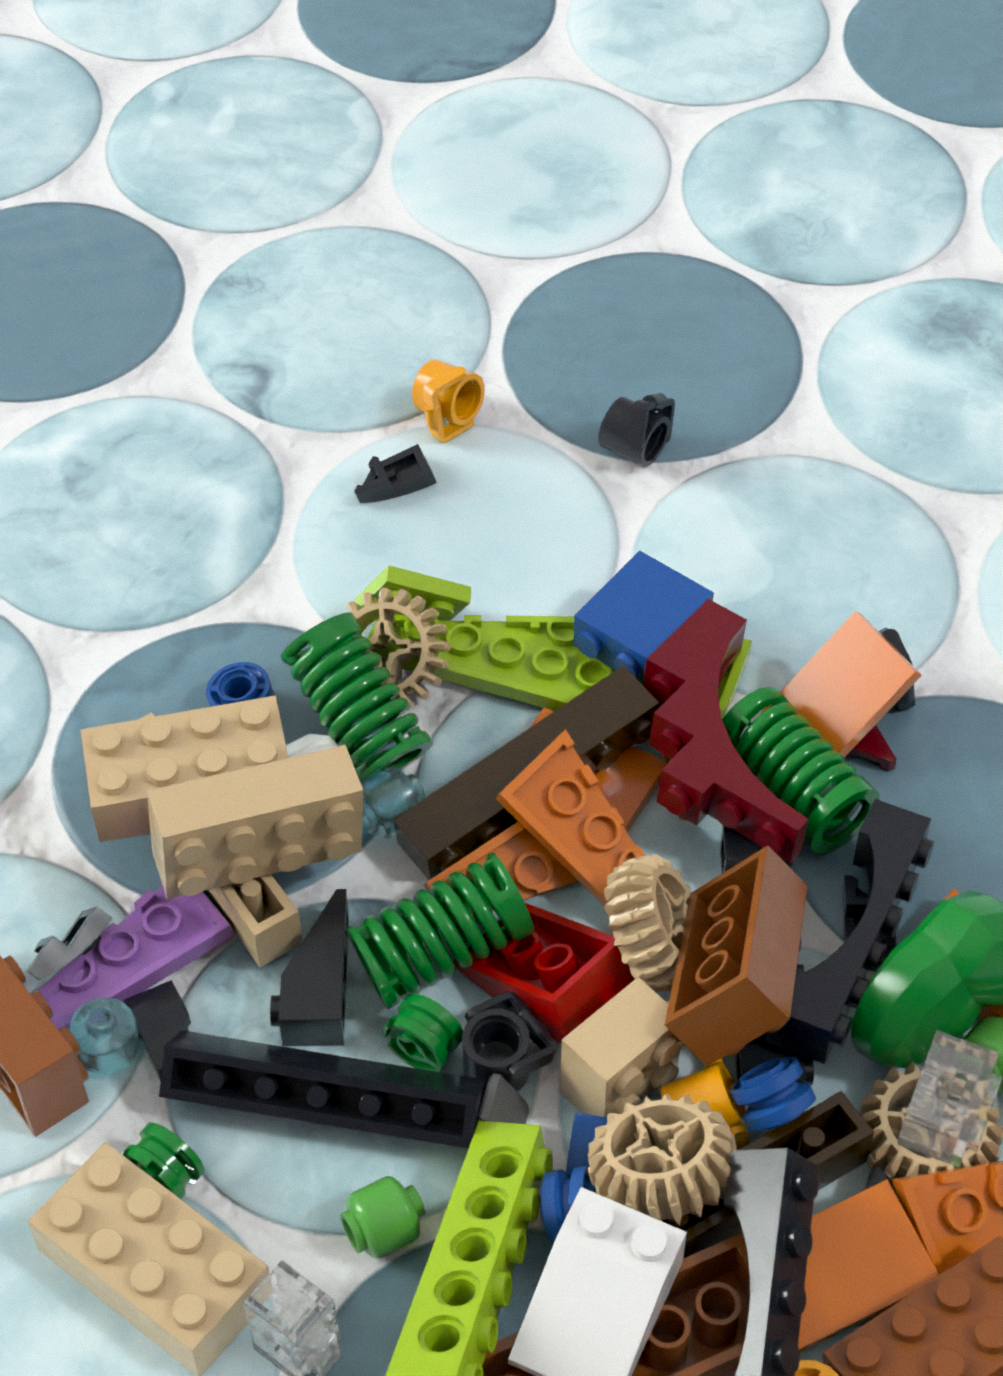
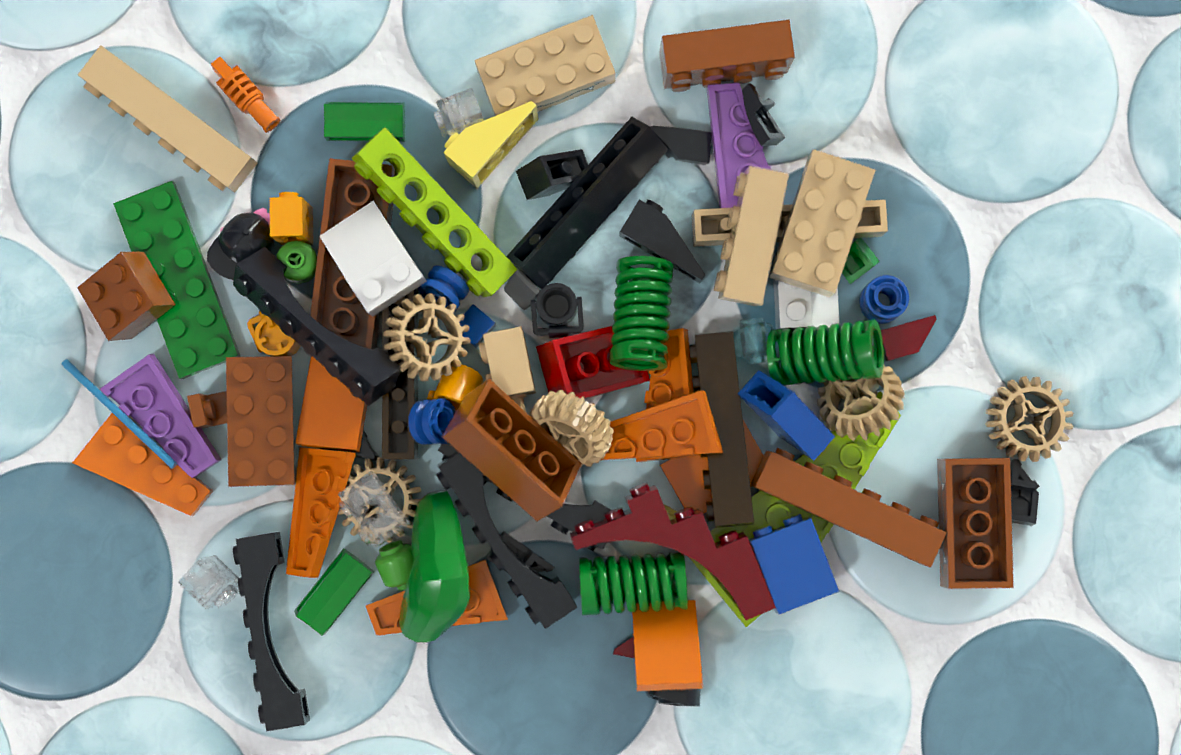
camera: 120 degrees right, 35 degrees up
(105, 1035) = (684, 117): clear light blue head -> none
(165, 1158) = (593, 100): green wheel -> none
(267, 654) = (906, 338): none -> dark red tile
(300, 511) = (1036, 431): none -> tan gear
(307, 1163) = (551, 173): none -> black slope
(332, 1251) = (486, 143): none -> light yellow slope
(382, 1217) = (498, 194): bright green head -> none
(423, 1033) = (590, 273): green wheel -> none
(443, 595) = (903, 435): lime wing -> none
(448, 395) = (1066, 564): light orange piece -> none
(458, 488) = (978, 523): none -> dark orange brick
(464, 702) = (786, 415): none -> blue brick
(534, 602) = (848, 508): none -> dark orange brick
(636, 428) = (961, 671): black piece -> none

